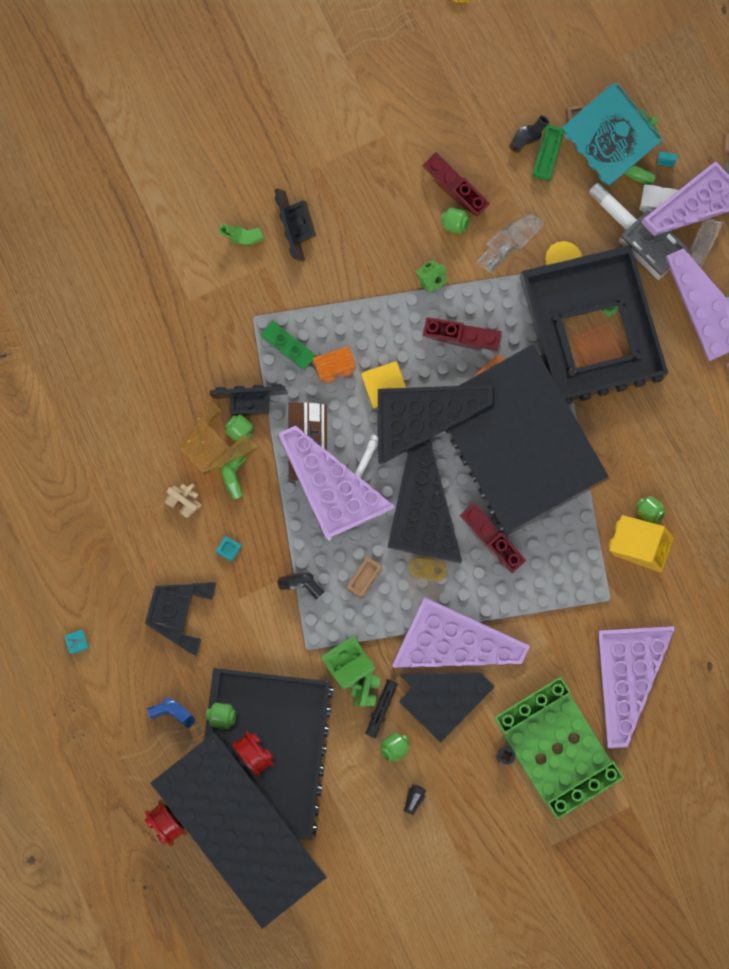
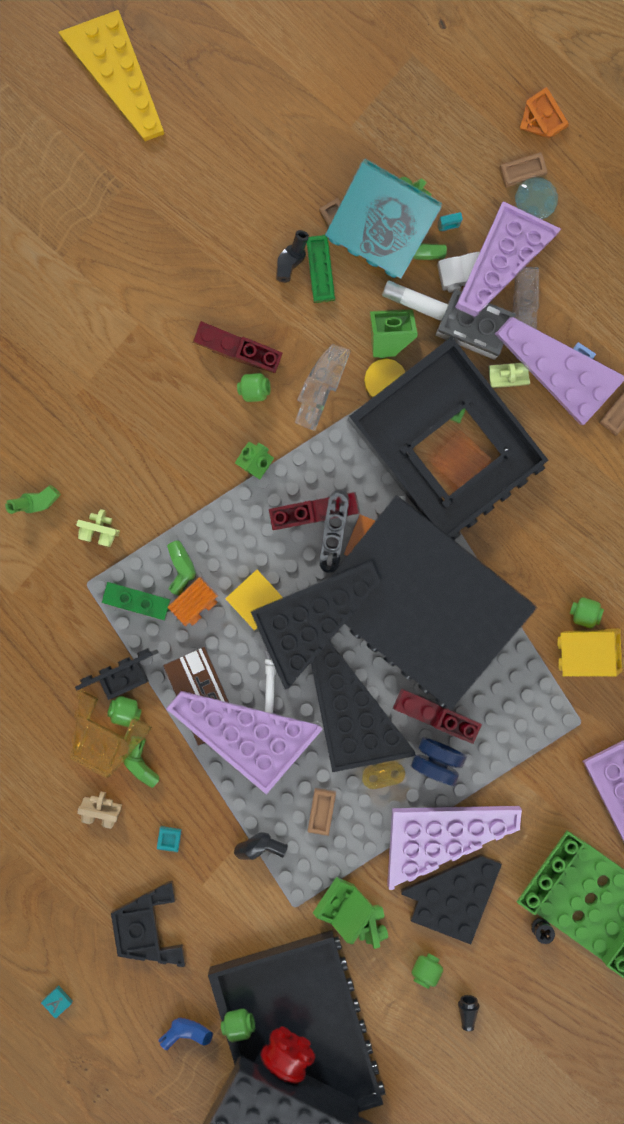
camera: 15 degrees left, 10 degrees up
(276, 273) = (107, 534): none -> yellowish green hips
(296, 222) = (86, 463): black bracket -> none
(339, 333) = (183, 565): none -> bright green arm
(372, 730) = (396, 948): black pin -> none
(469, 353) = (332, 531): none -> black beam
(478, 571) = (438, 761): none -> dark blue wheel
(583, 223) = (391, 331): none -> bright green slope
(664, 295) = (508, 375): none -> yellowish green hips

